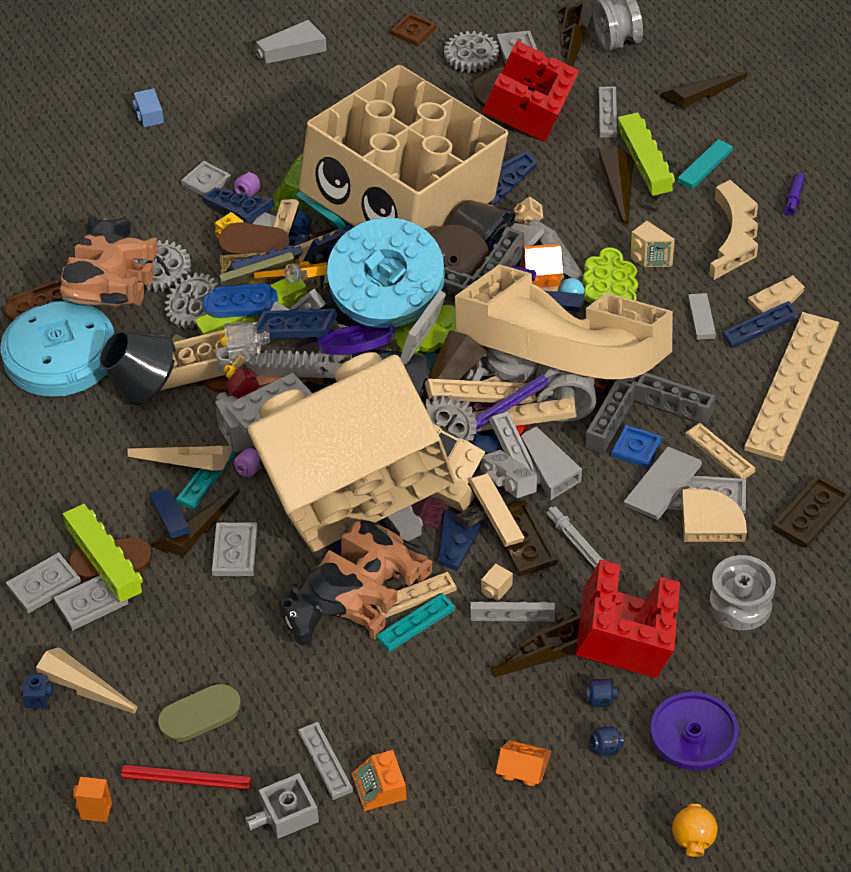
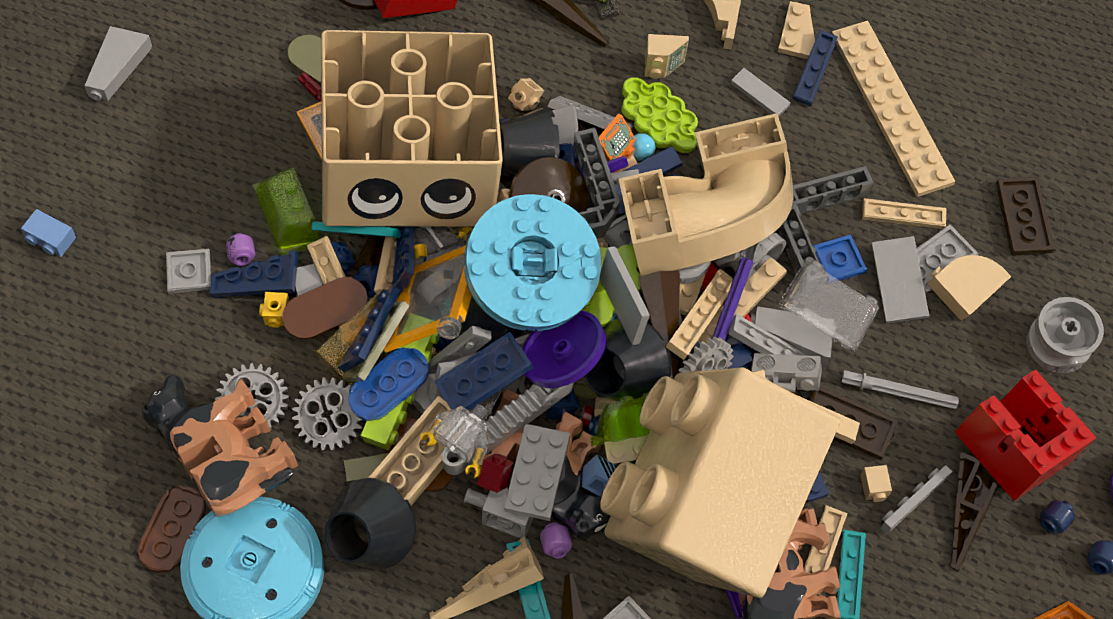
camera: 50 degrees left, 15 degrees up
(583, 456) = (830, 305): none -> clear windscreen

